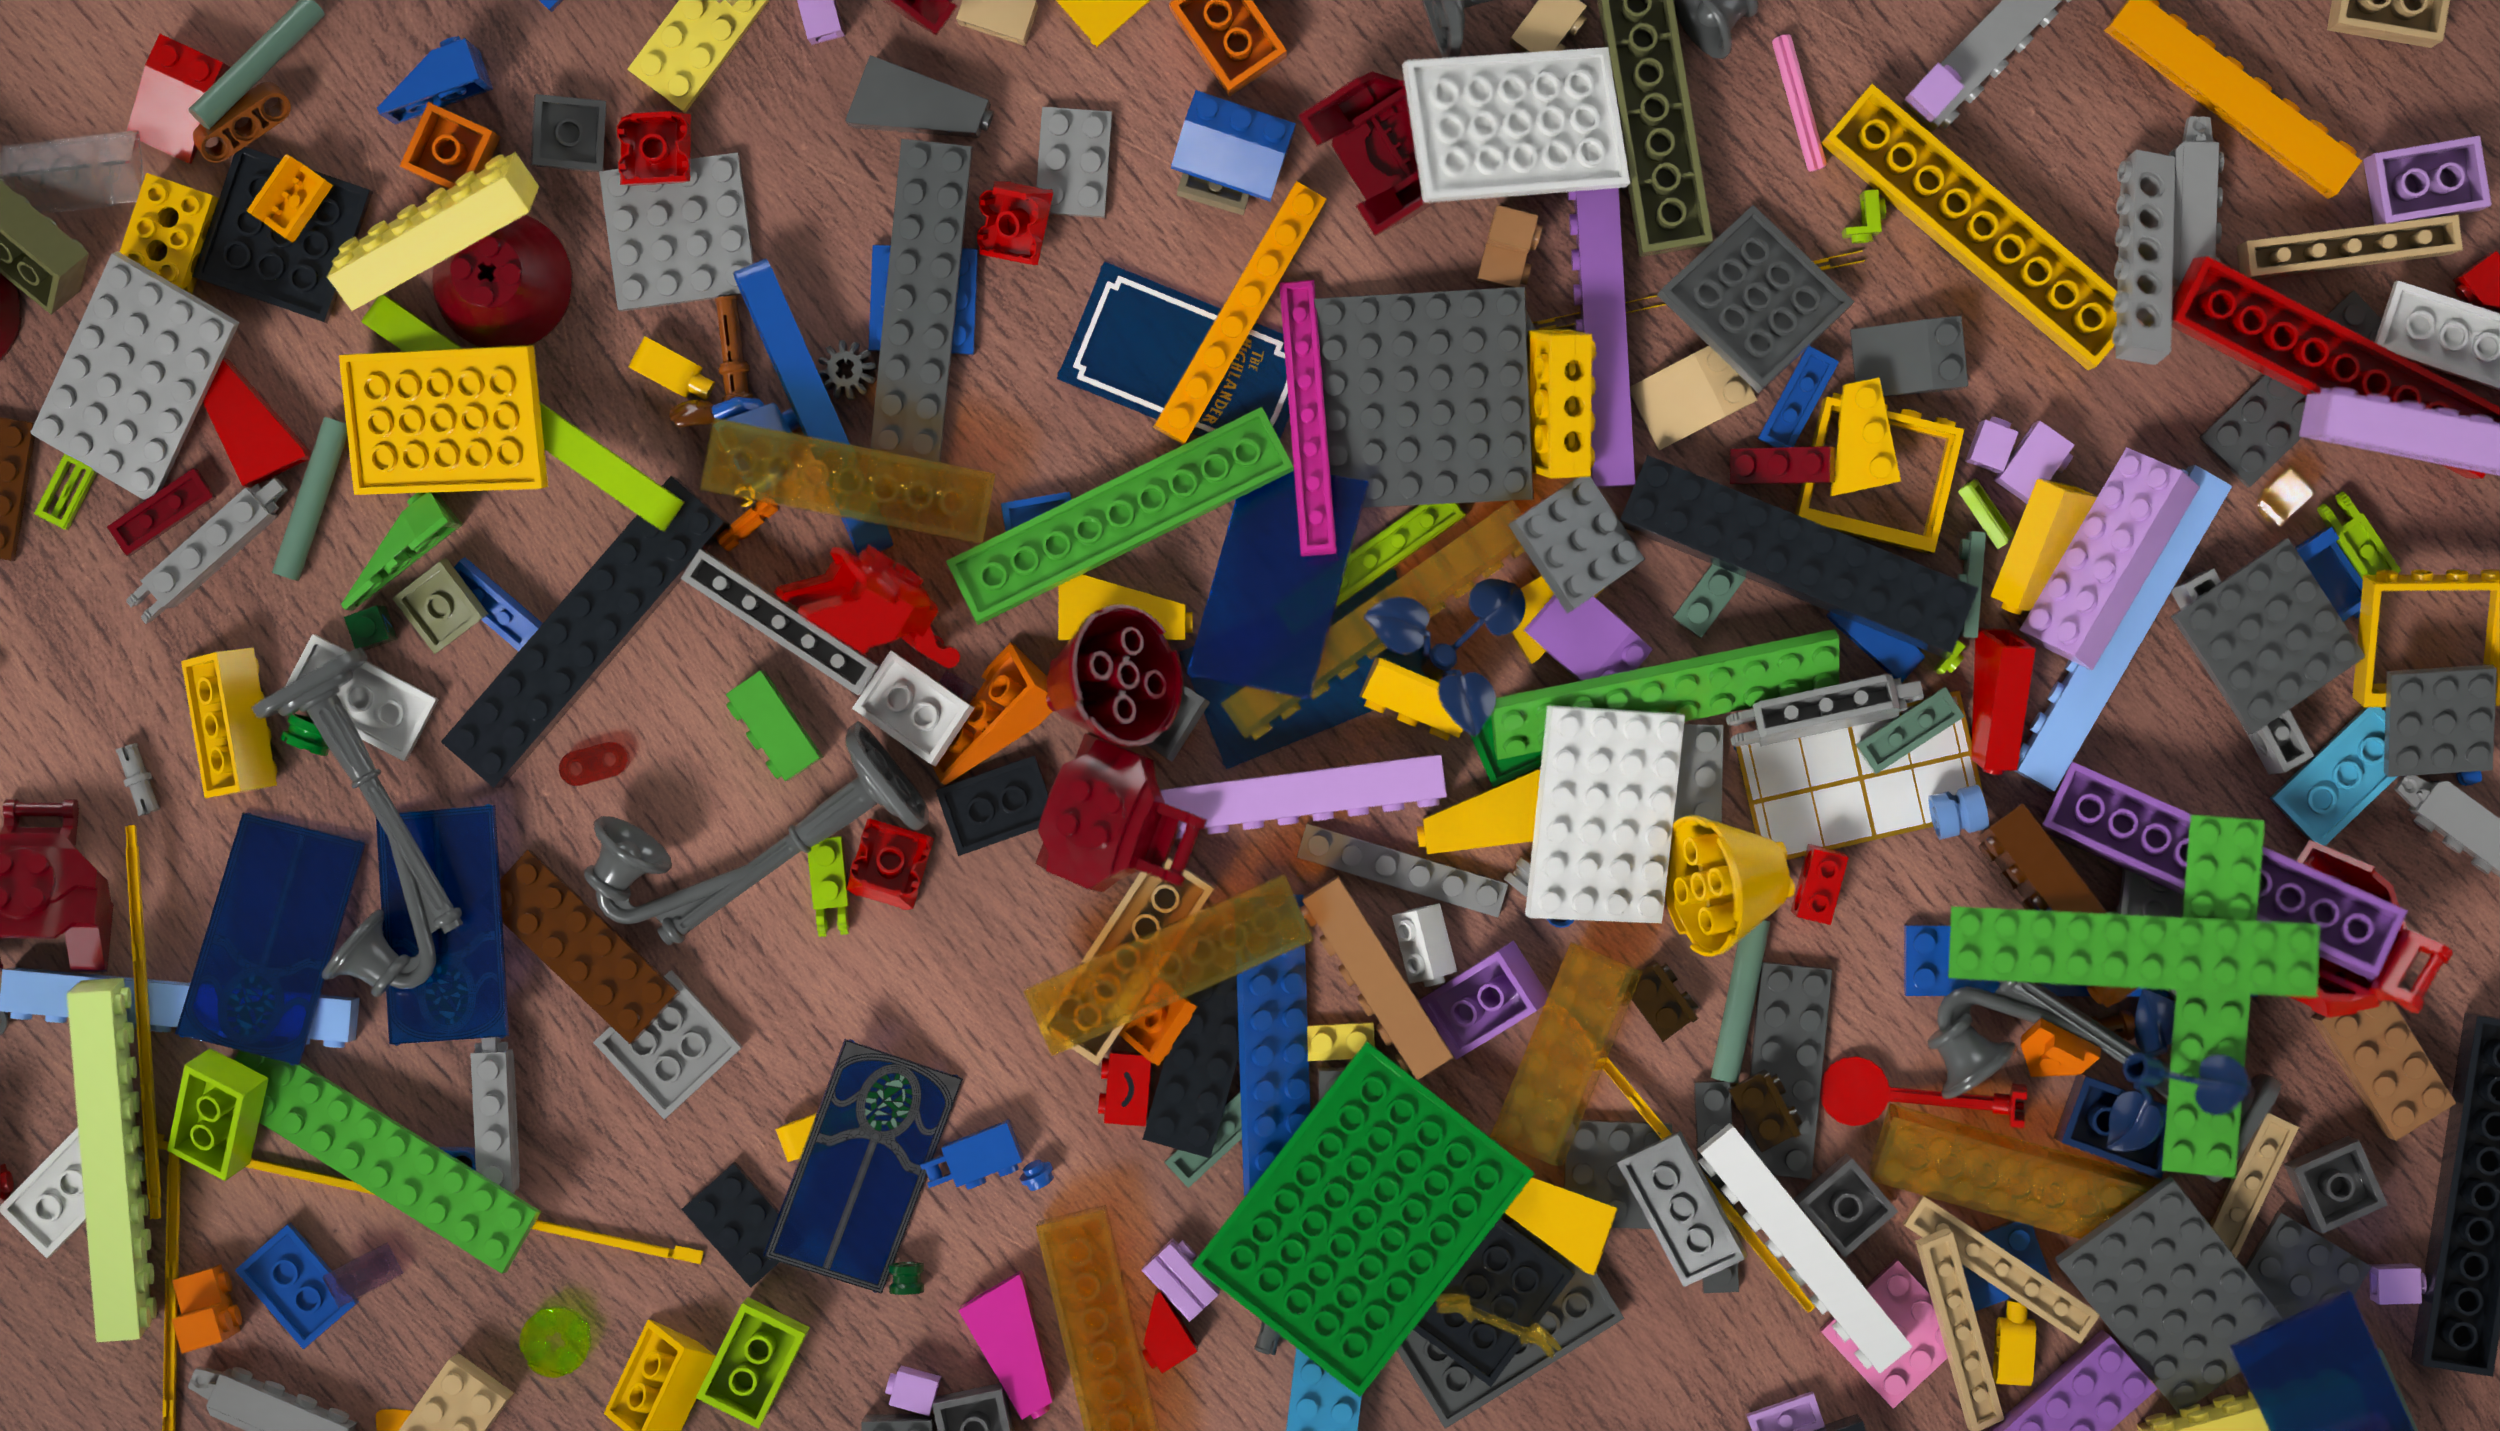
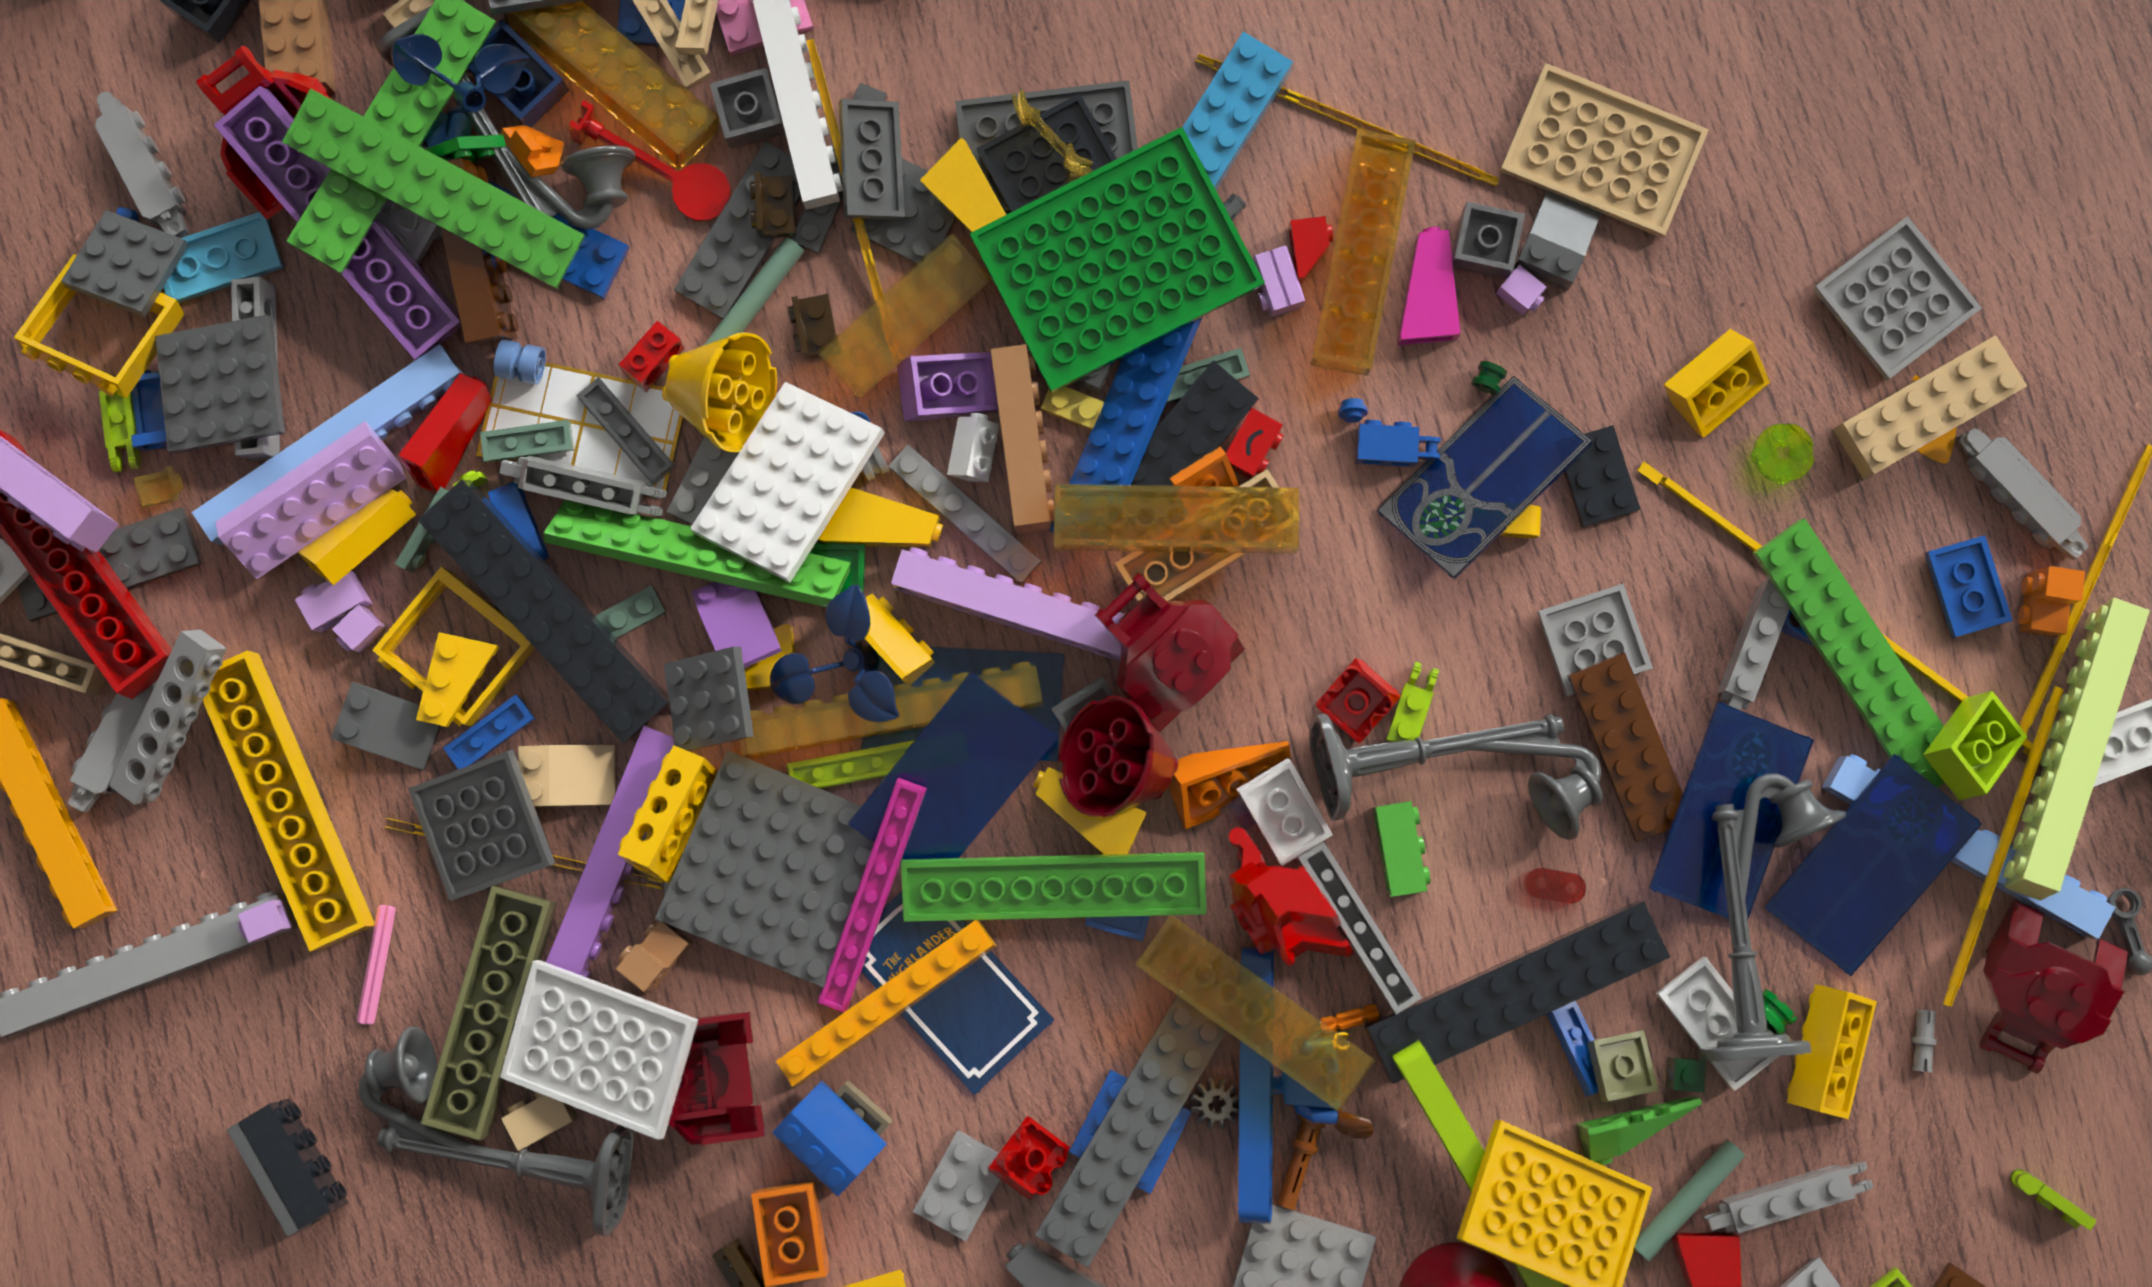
camera: 155 degrees left, 5 degrees down
(161, 512) = (1813, 1246): dark red plate -> none
(362, 1275) = (1913, 570): clear purple plate -> none
(670, 370) = (1355, 1169): yellow piece -> none
(752, 1362) = (1637, 366): lime brick -> none
(994, 805) = (1255, 707): black plate -> none
(1782, 465) = (524, 687): dark red plate -> none
(1809, 791) = (626, 431): none -> dark grey tile
(1872, 211) = (362, 851): lime bracket -> none
(1986, 513) = (388, 579): lime tile -> none
(2125, 1012) = (468, 147): none -> green plate

